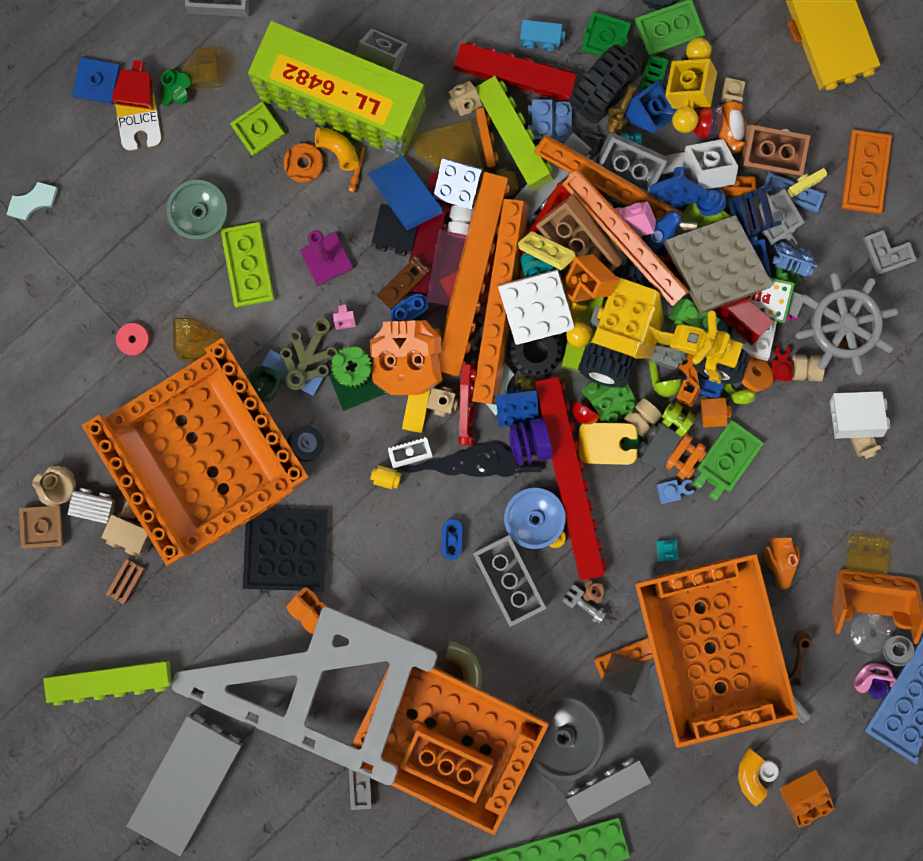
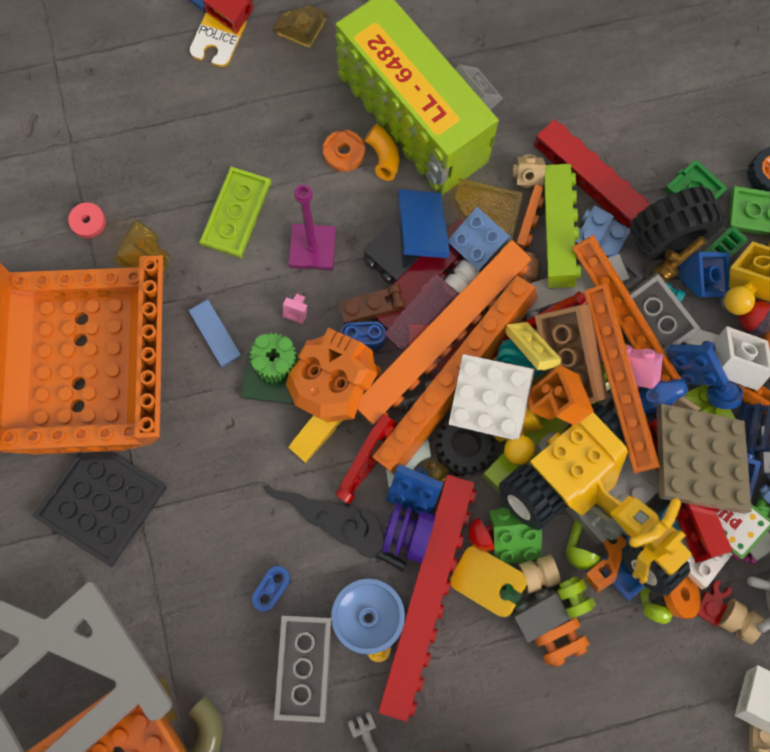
camera: 25 degrees right, 10 degrees down
(23, 206) = (70, 53): light aqua tile -> none
(174, 87) = (267, 24): green plate -> none
(190, 198) = (215, 125): sand green dish -> none
(257, 129) = (320, 99): lime tile -> none
(265, 382) = (179, 326): clear green helmet -> none
(306, 357) = (237, 325): olive plant -> none
(306, 443) = (184, 407): black wheel -> none
(306, 609) = (80, 570): orange brick -> none
(355, 178) = (383, 190): orange piece -> none
(385, 477) = (242, 486): yellow brick -> none
(410, 452) = (280, 474): white brick -> none
(437, 395) = (339, 434): tan brick -> none
(541, 35) = (634, 154): dark azure brick -> none
(599, 591) = (391, 737): nougat plate -> none
(667, 550) = (489, 733): teal tile -> none
(671, 491) = (526, 671): medium blue plate -> none
(686, 313) = (646, 489): bright green brick -> none
(714, 412) = (618, 612): orange brick -> none
(727, 459) = (605, 671): bright green tile -> none

